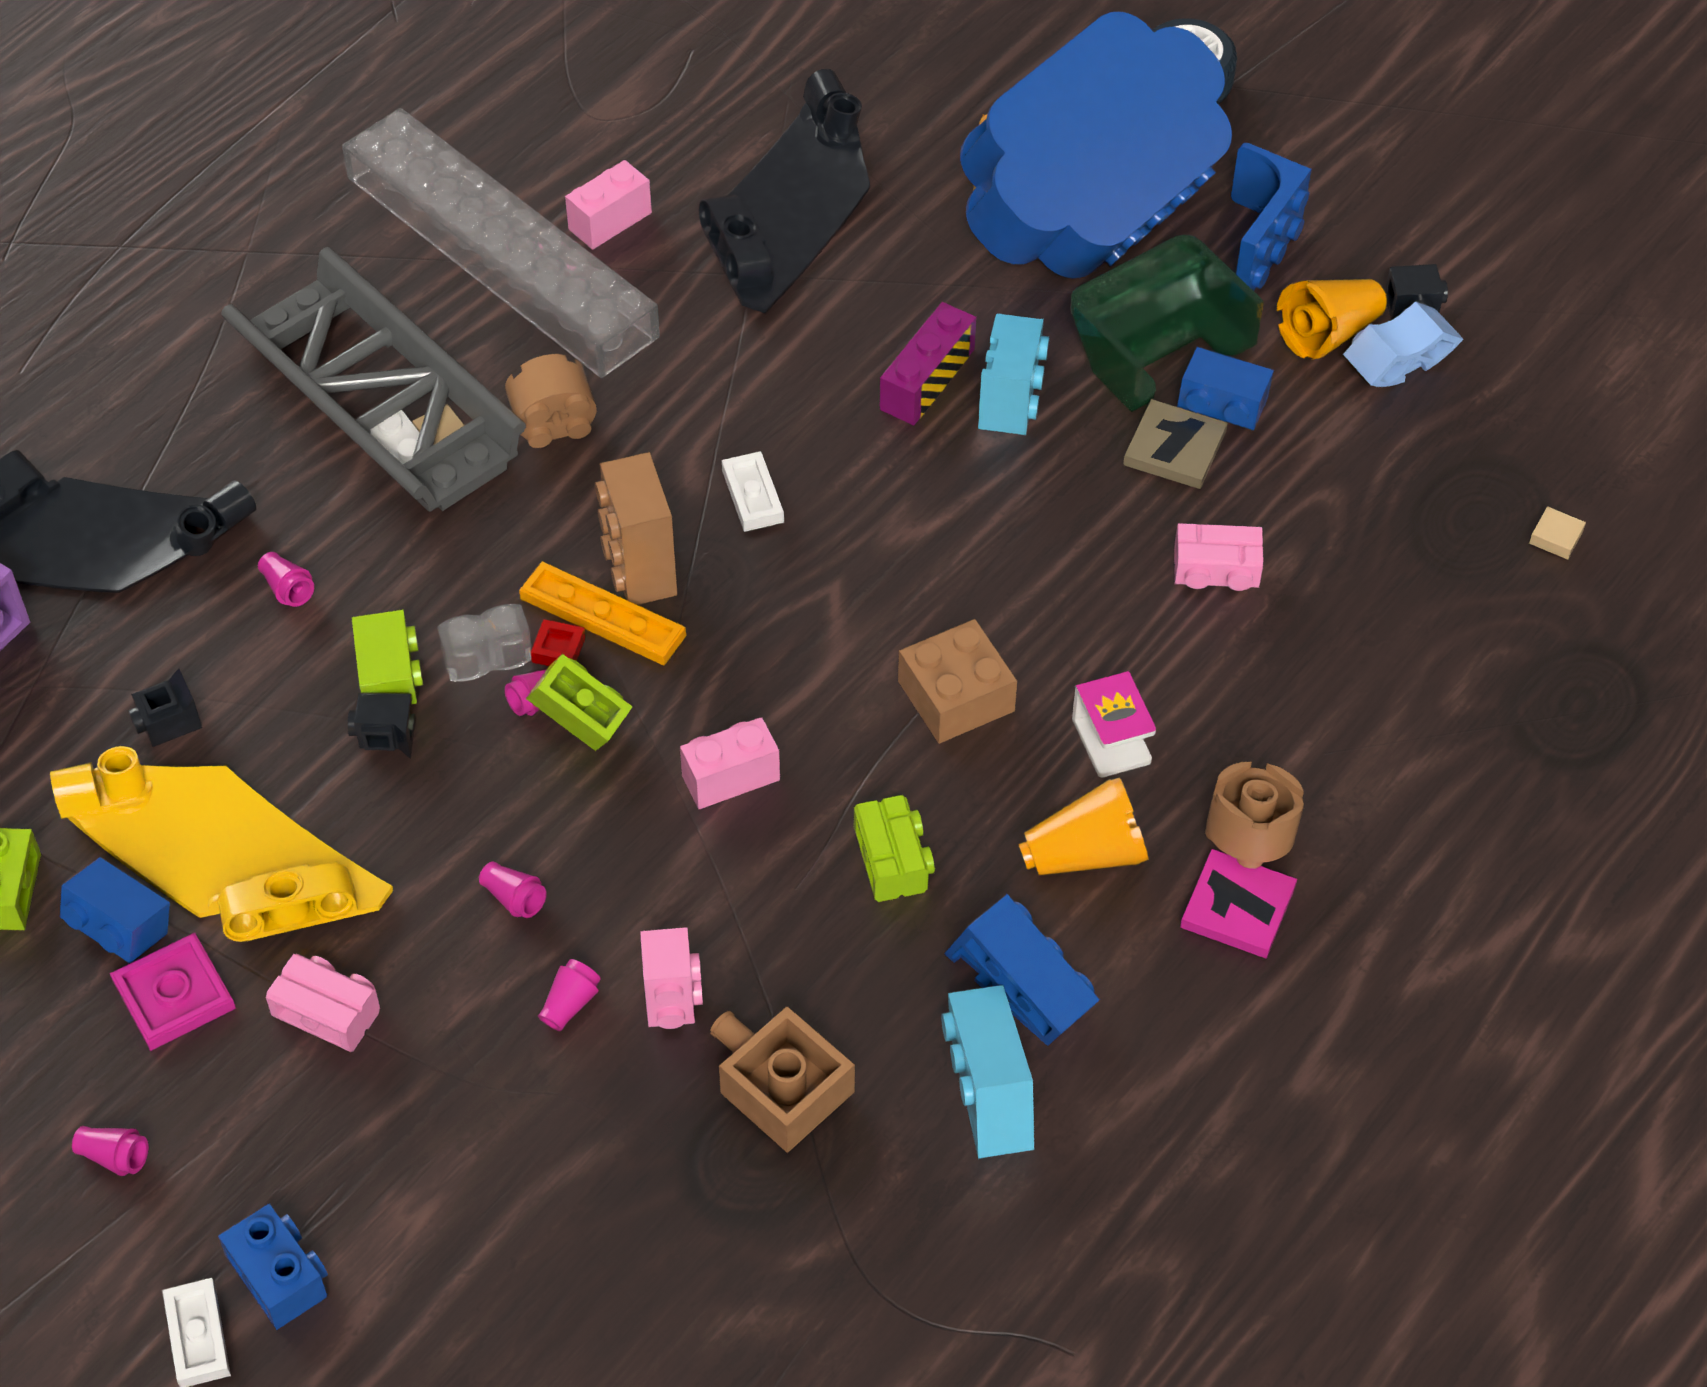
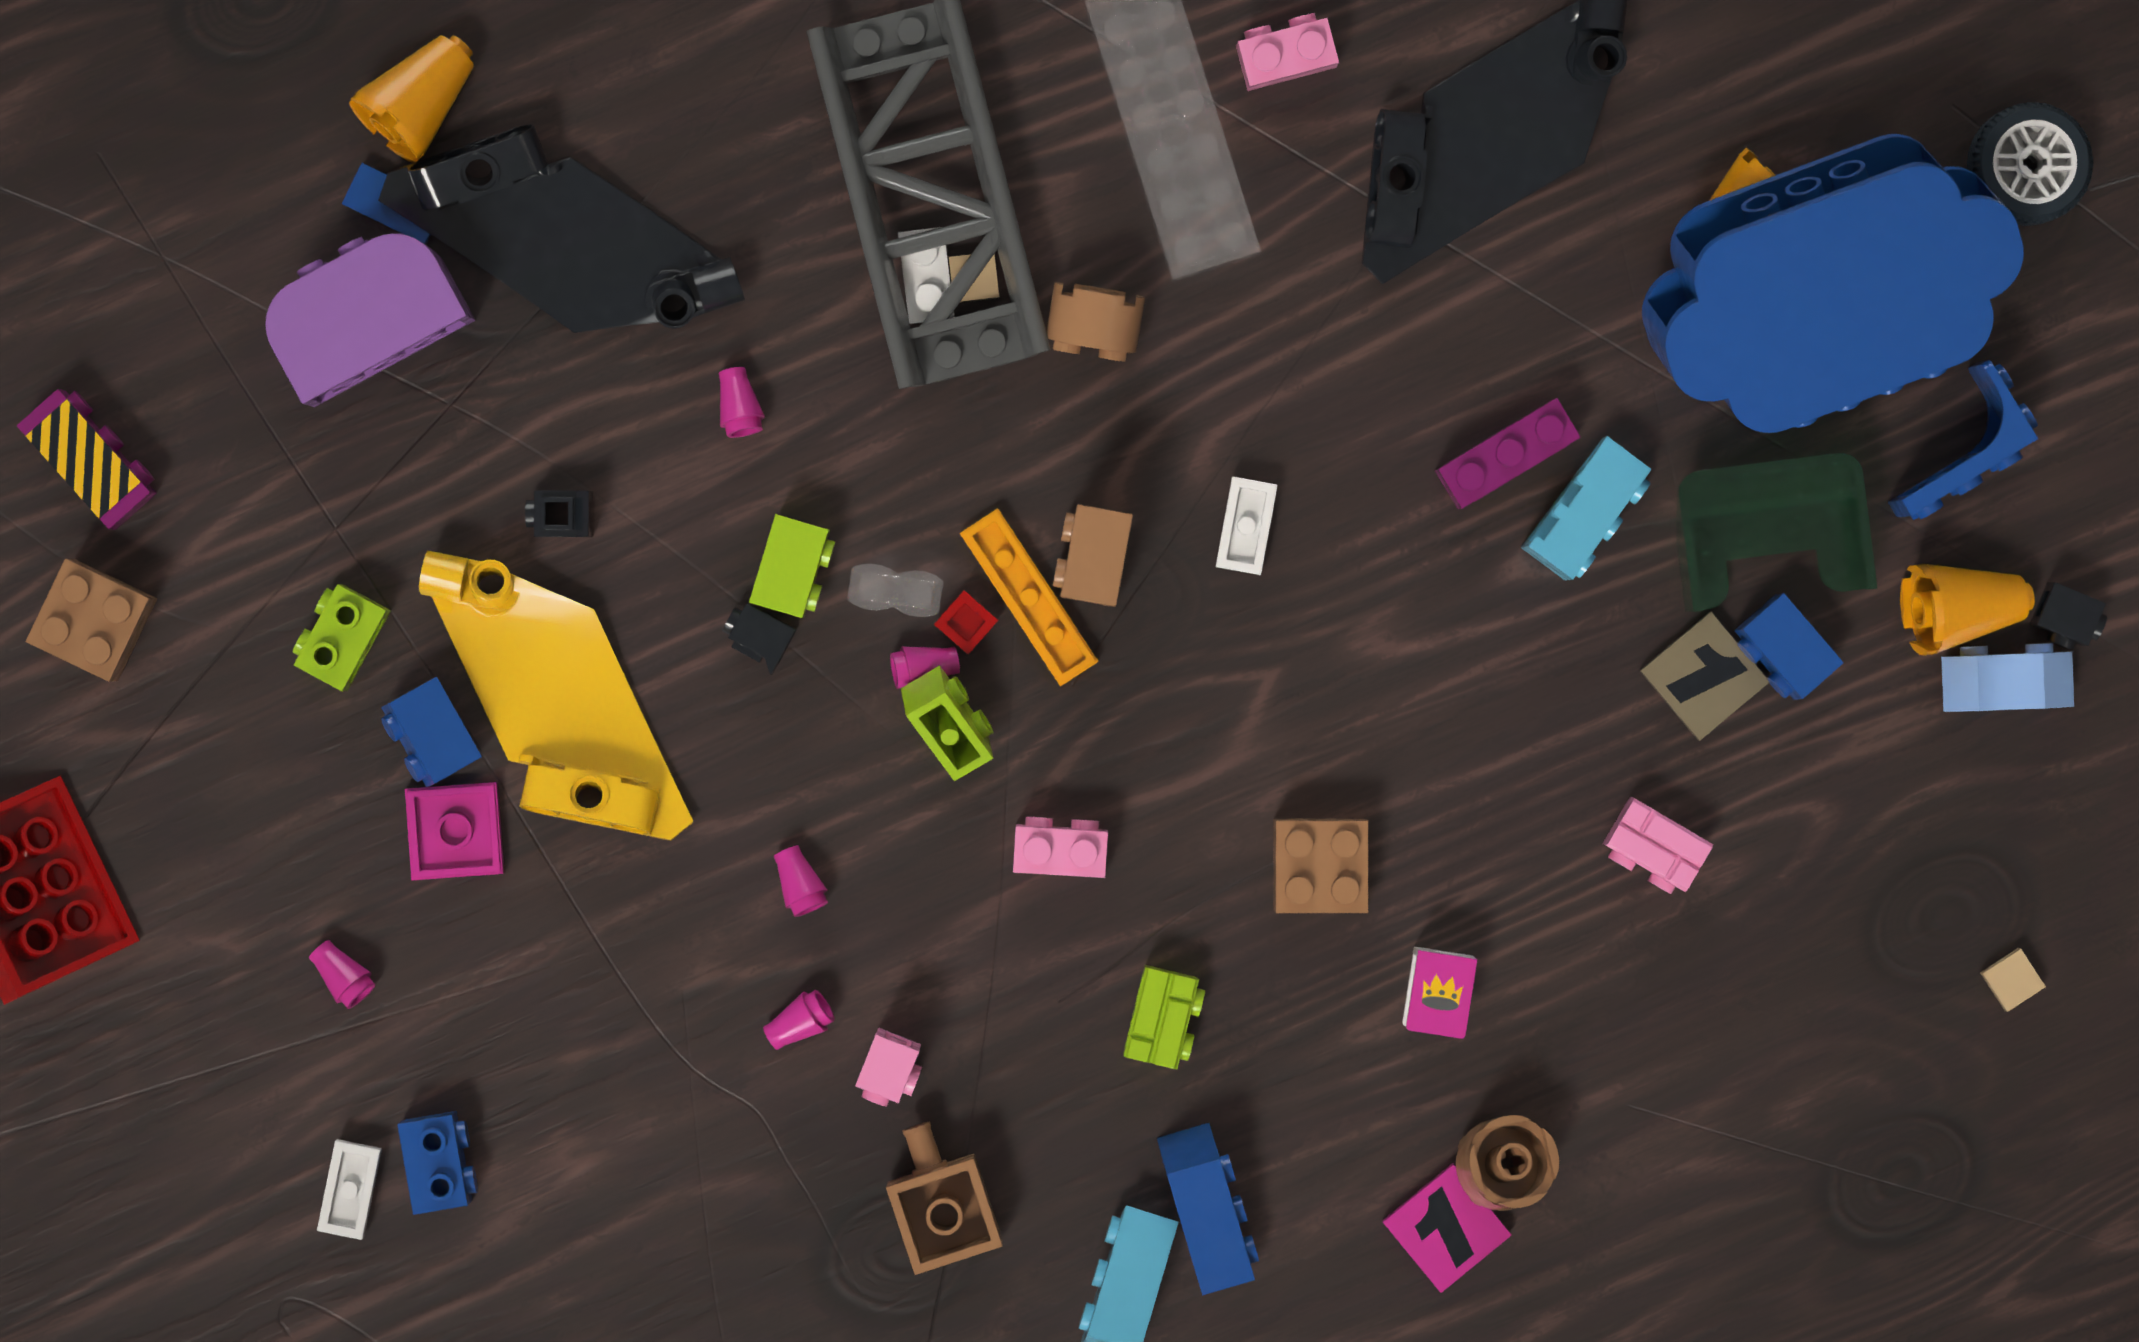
camera: 30 degrees right, 35 degrees up
(324, 1001) = (581, 919): bright pink brick -> none
(1087, 834) = (1344, 1102): light orange cone -> none

